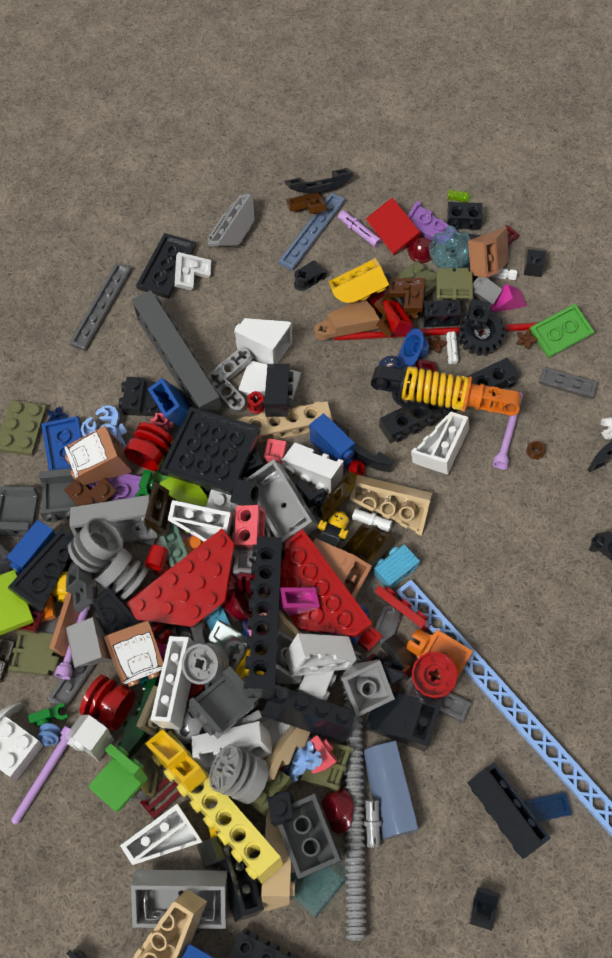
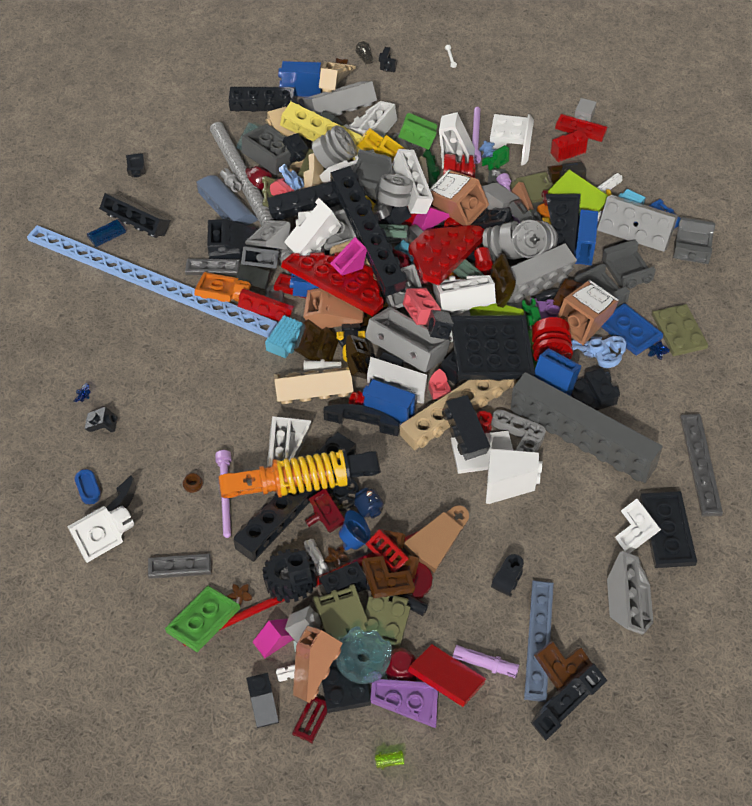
camera: 155 degrees right, 10 degrees down
(359, 282) = (446, 570): yellow brick -> none
(430, 663) = (218, 260): red wheel -> none
(464, 215) = (371, 732): black brick -> none

